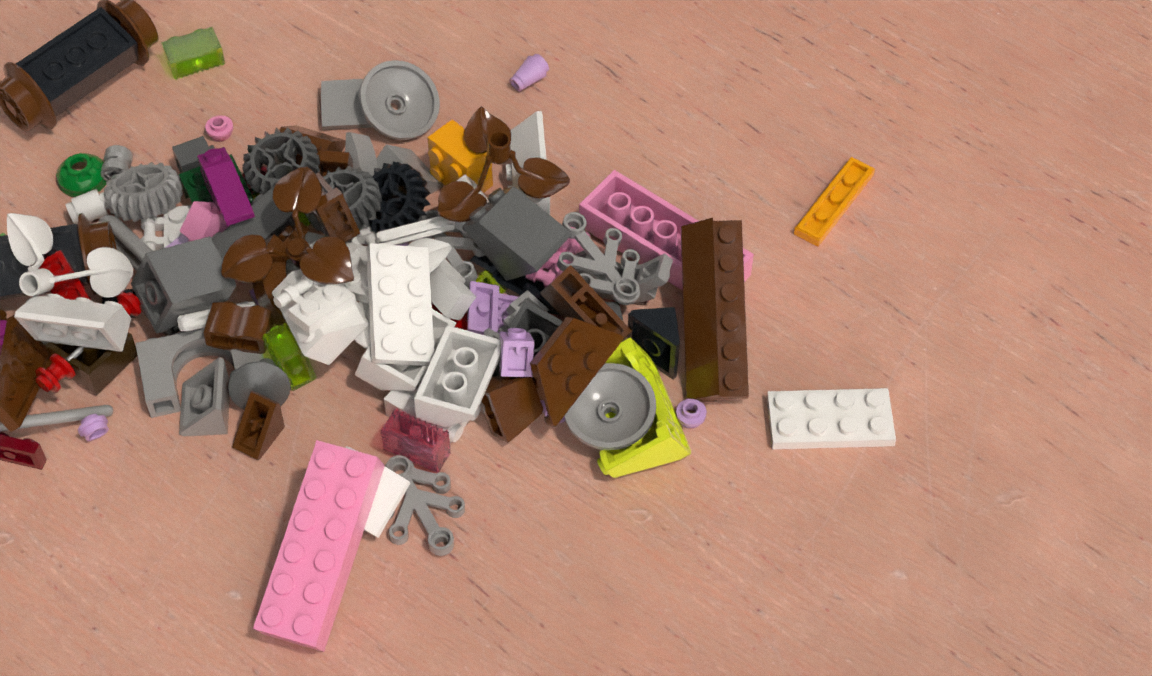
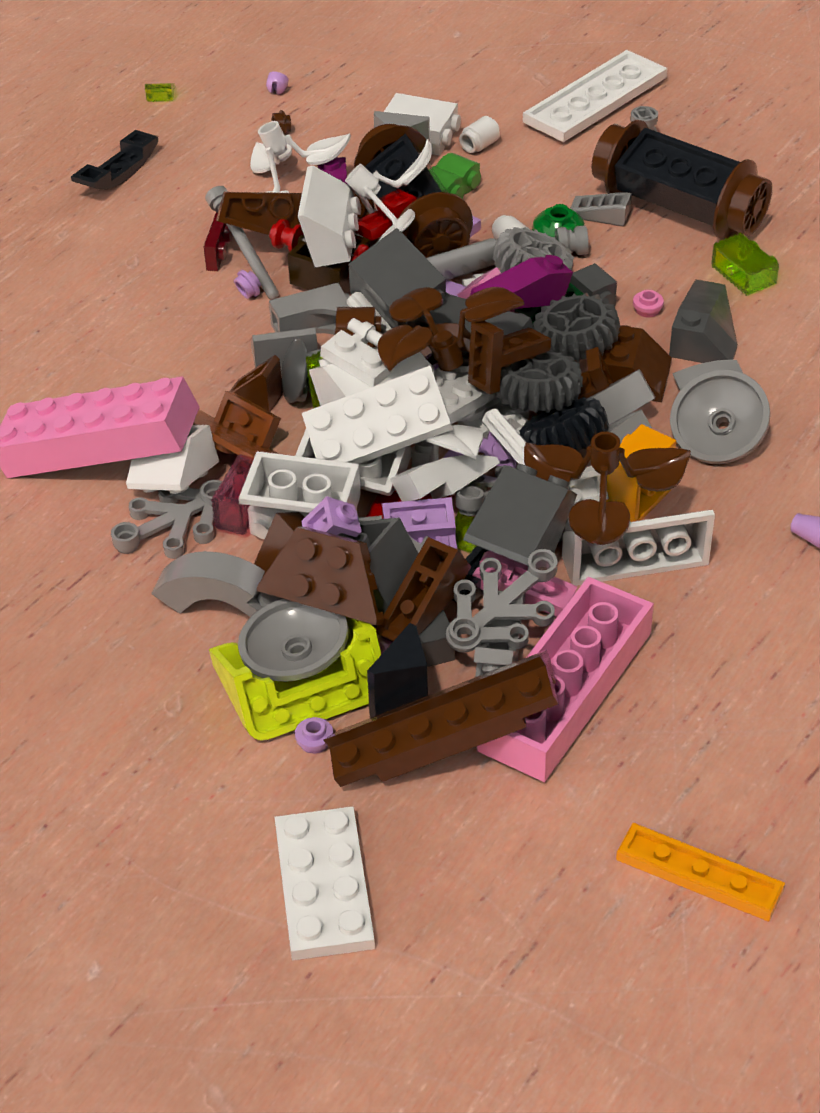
camera: 85 degrees right, 10 degrees down
(70, 121) = (604, 208): none -> light grey slope
(262, 98) = (704, 325): none -> dark grey wedge
(325, 427) = (240, 426): none -> dark orange bracket
(527, 467) = (212, 577): none -> light grey arch

